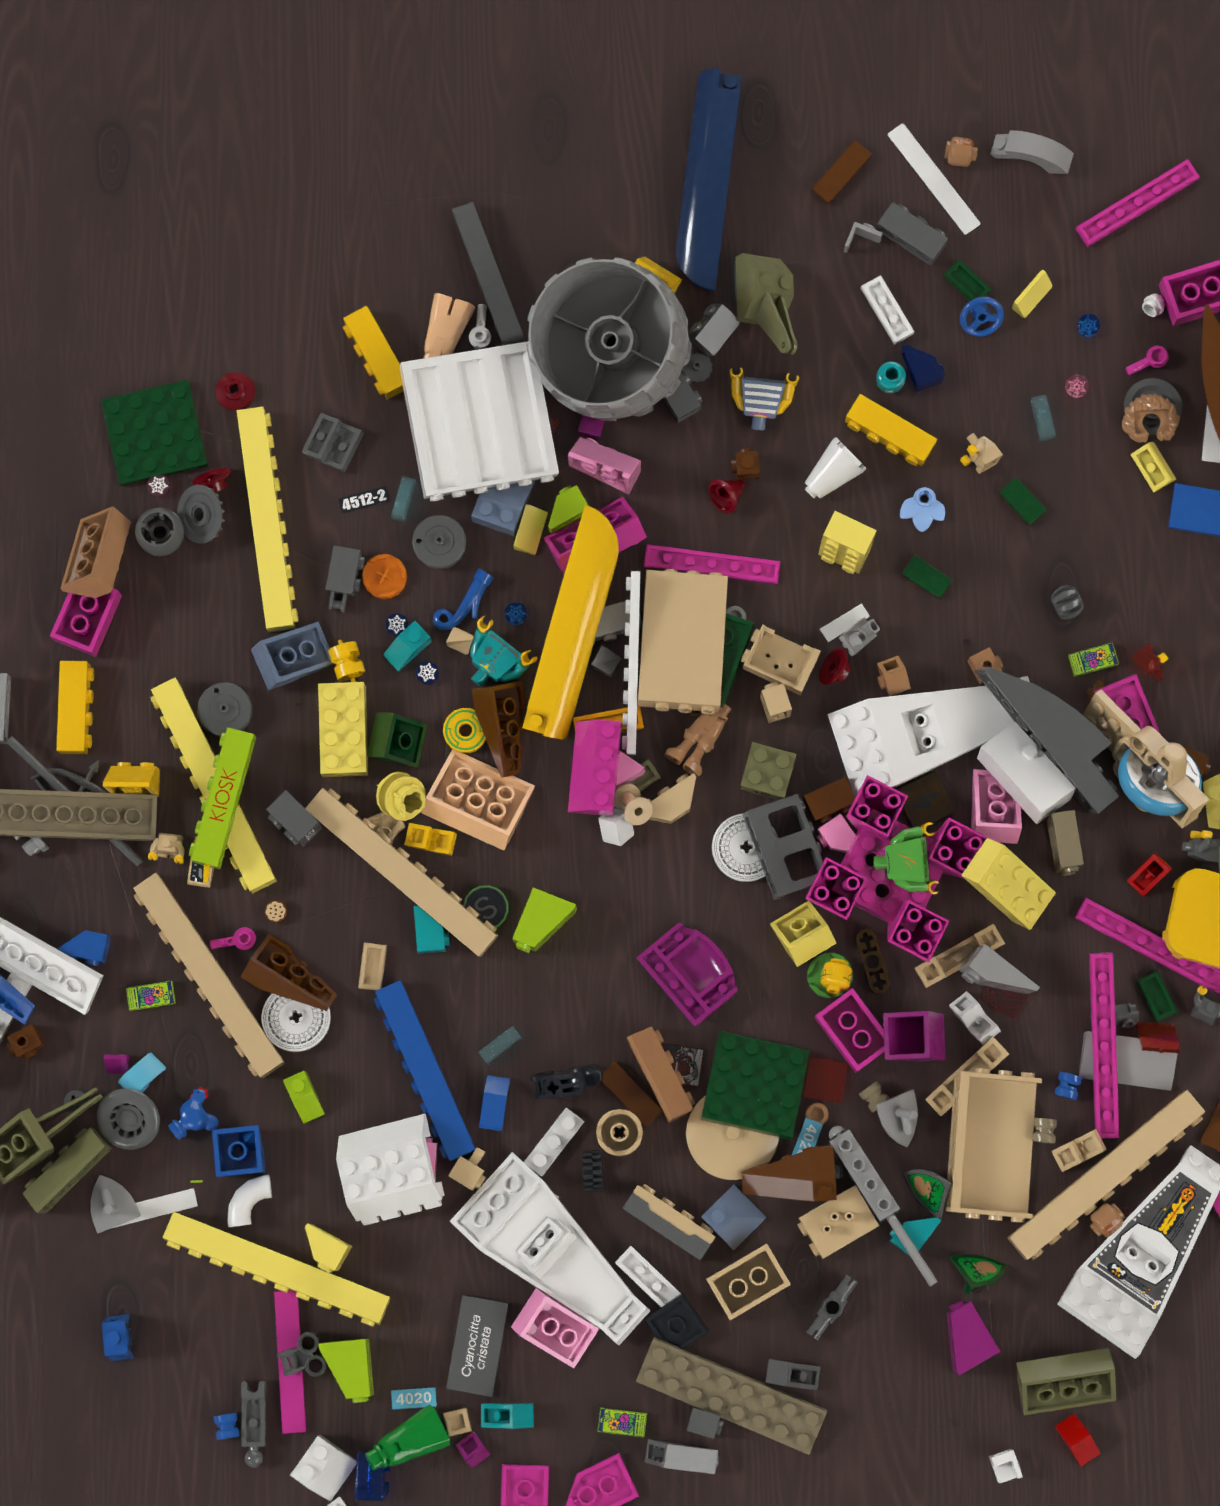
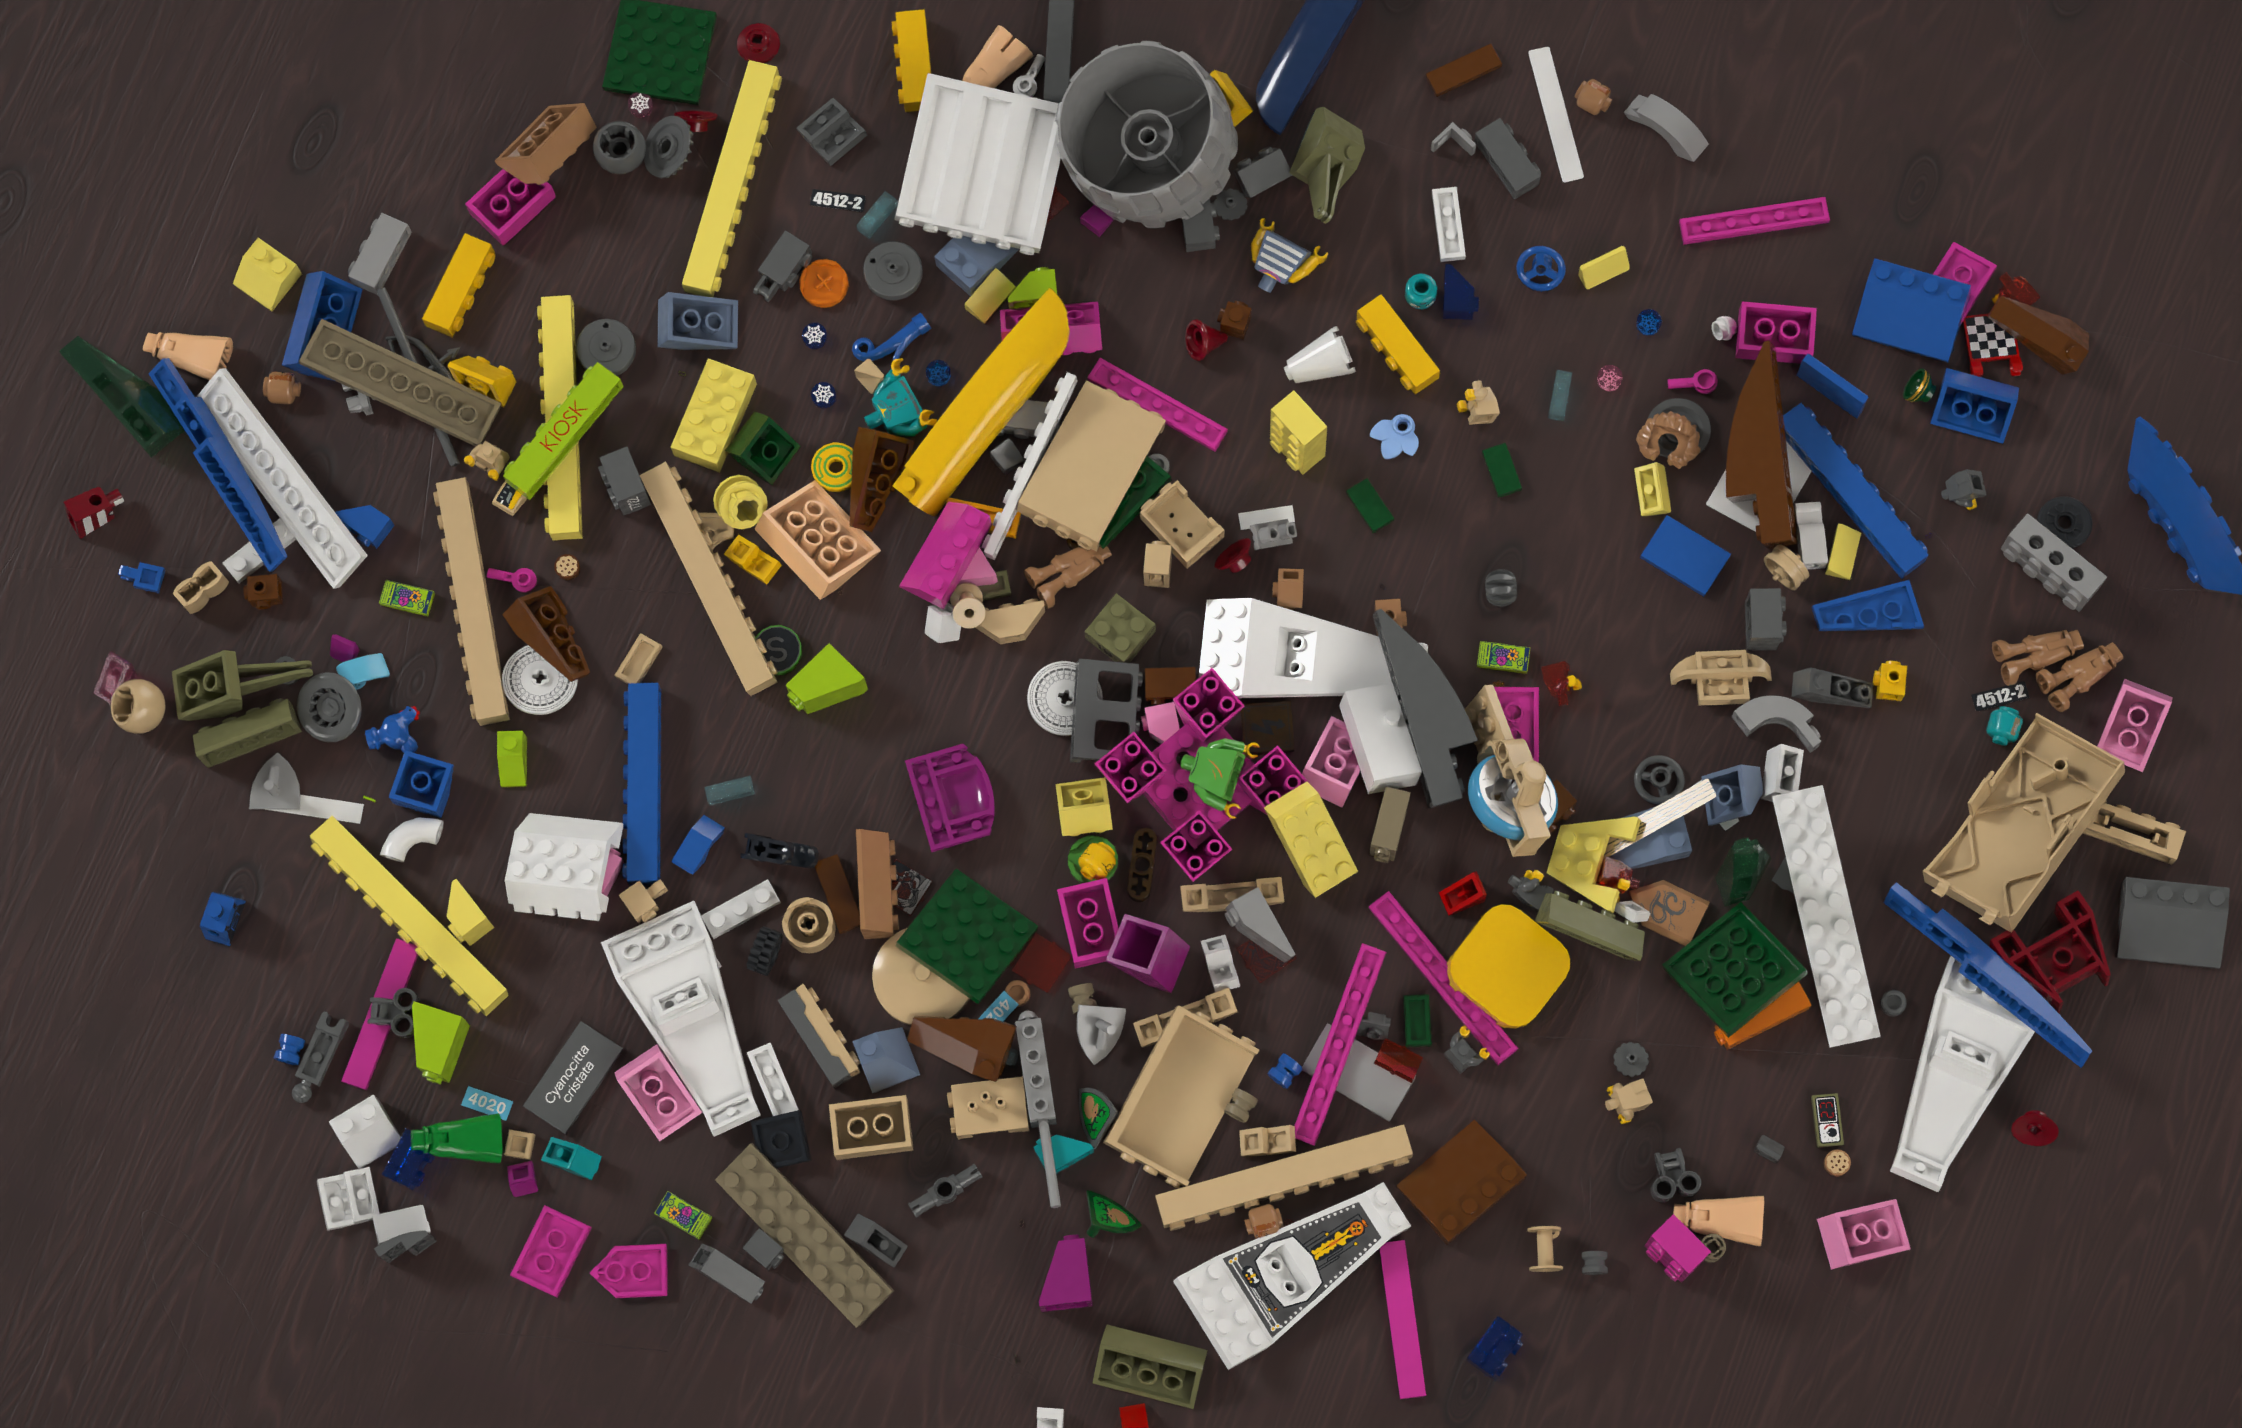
camera: 25 degrees right, 5 degrees down
(347, 664) = (747, 349): yellow wheel -> none
(407, 646) = (815, 359): teal slope -> none
(429, 933) = (708, 651): teal slope -> none
(605, 464) = (1092, 260): bright pink wedge -> none
(966, 281) = (1542, 228): dark green tile -> none

